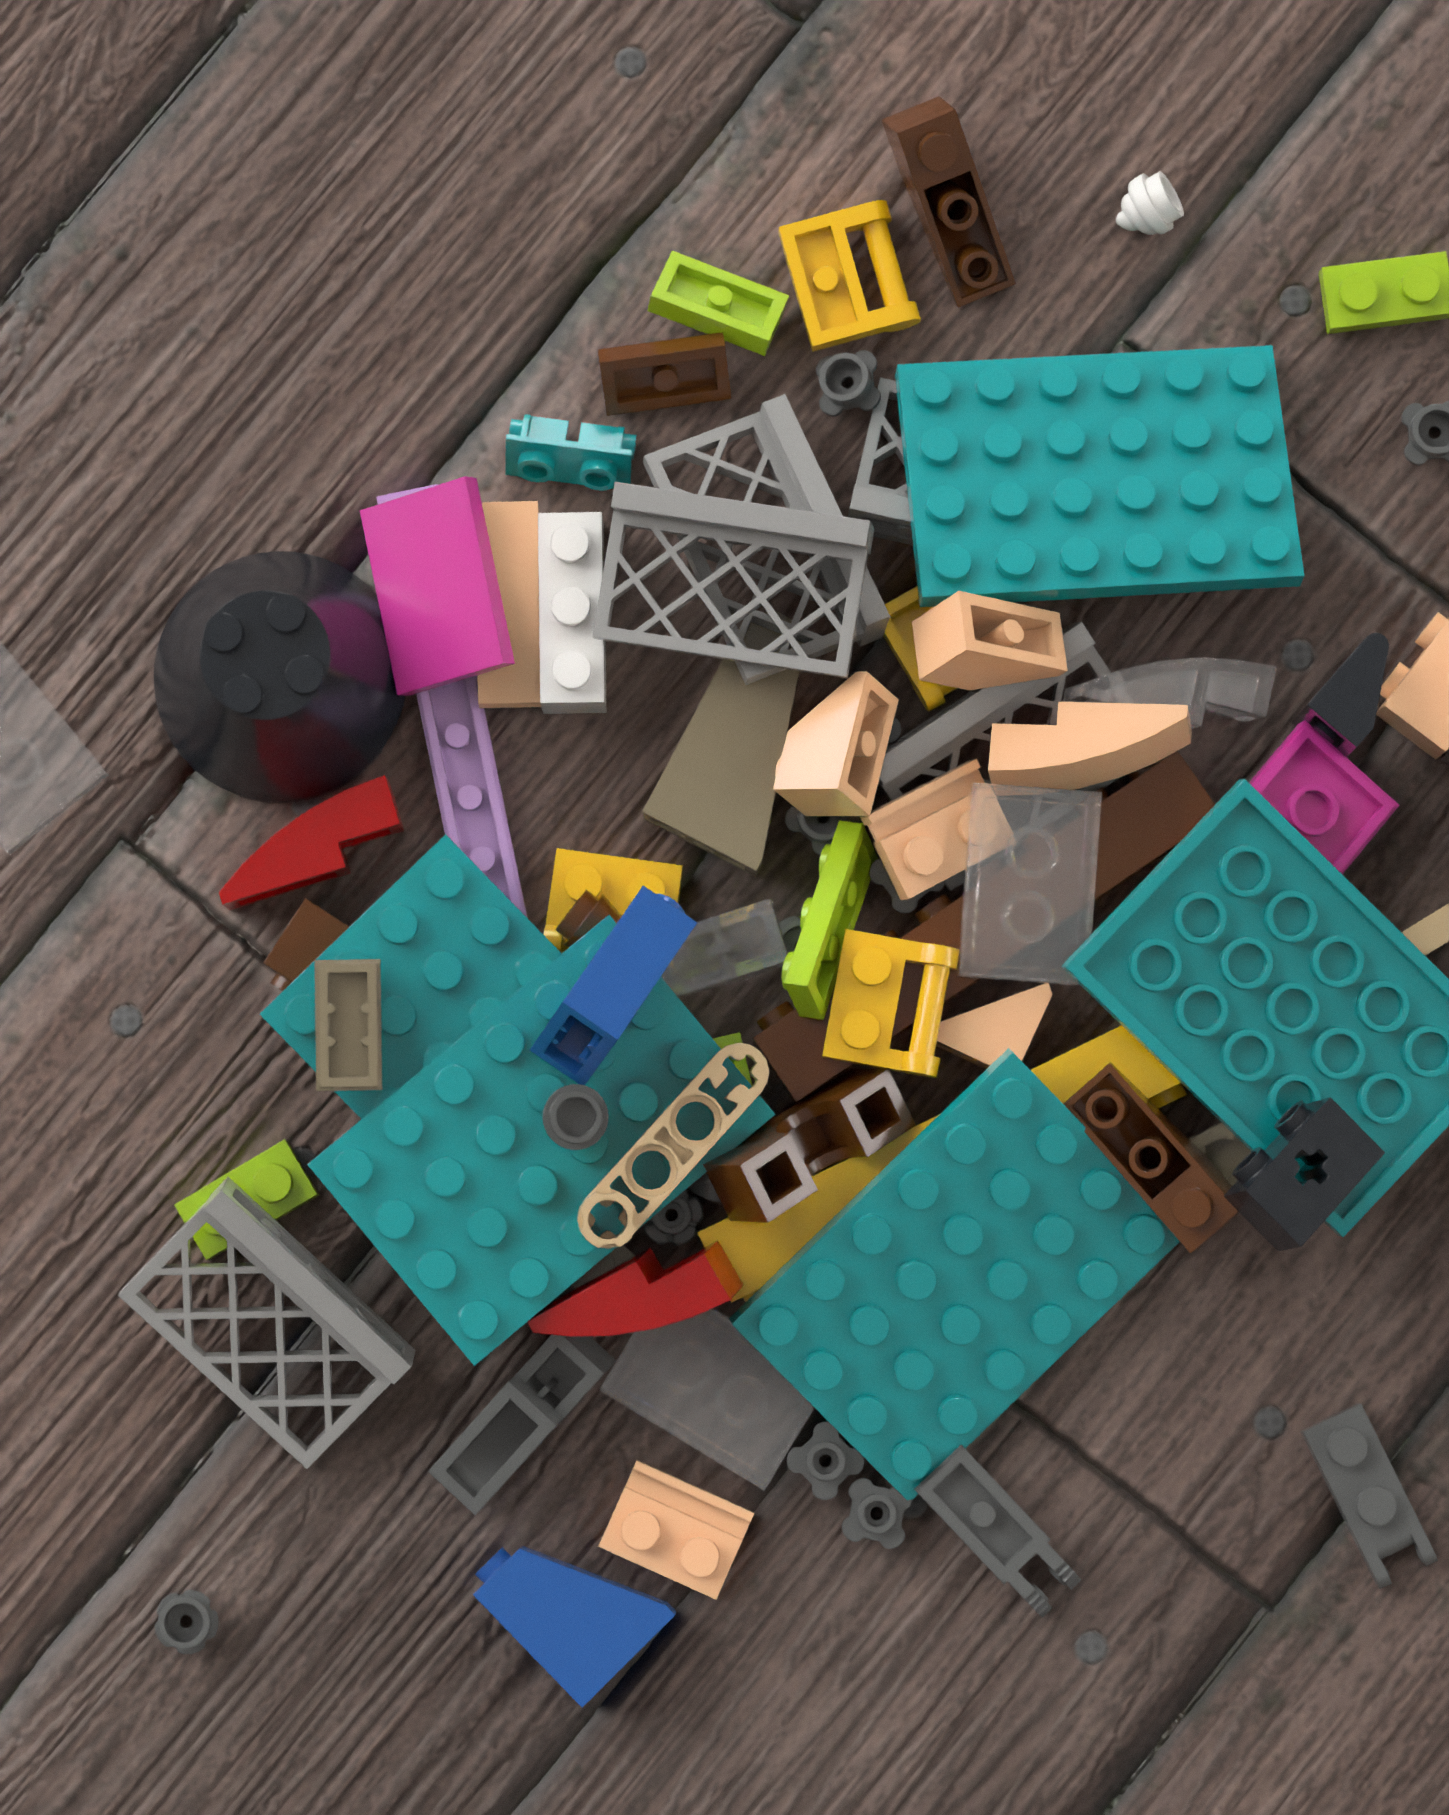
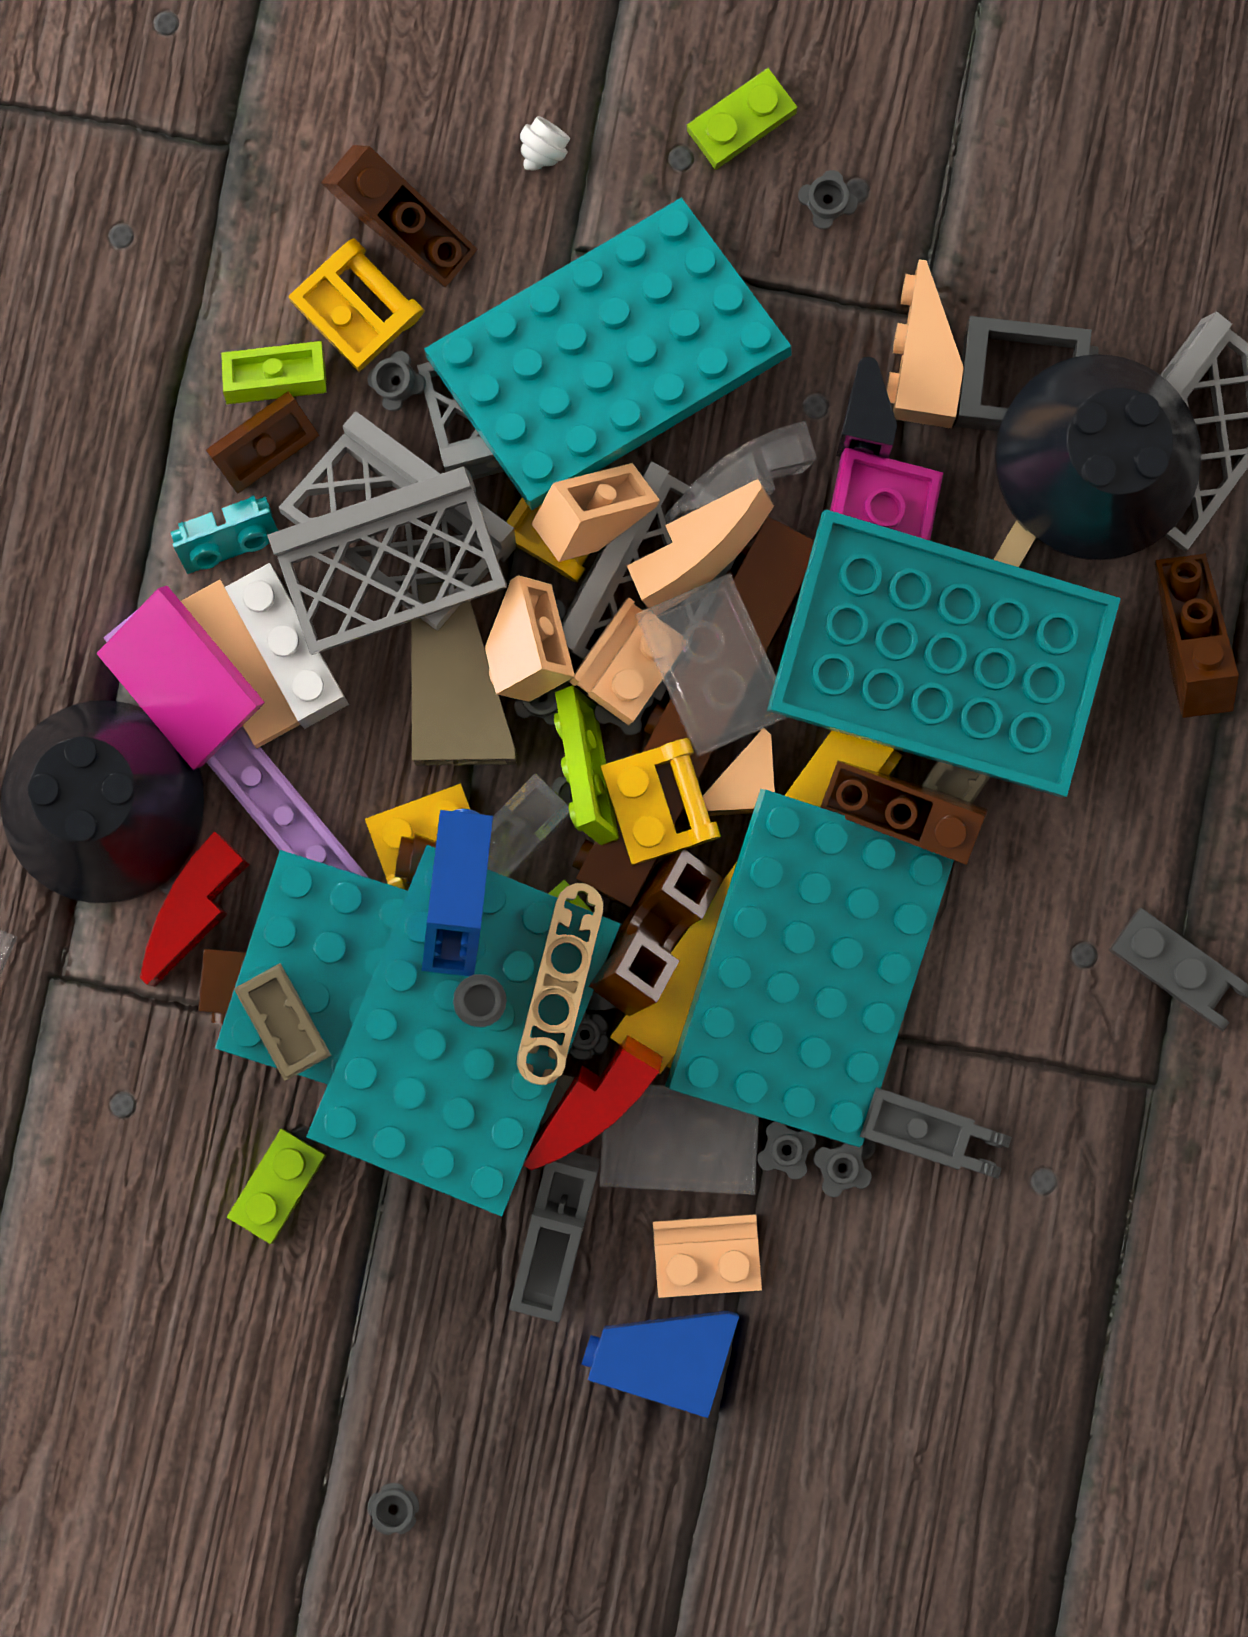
camera: 25 degrees left, 0 degrees up
(307, 1284) = (349, 1222): light grey fence -> none
(1335, 1161) = (1034, 745): black brick -> none

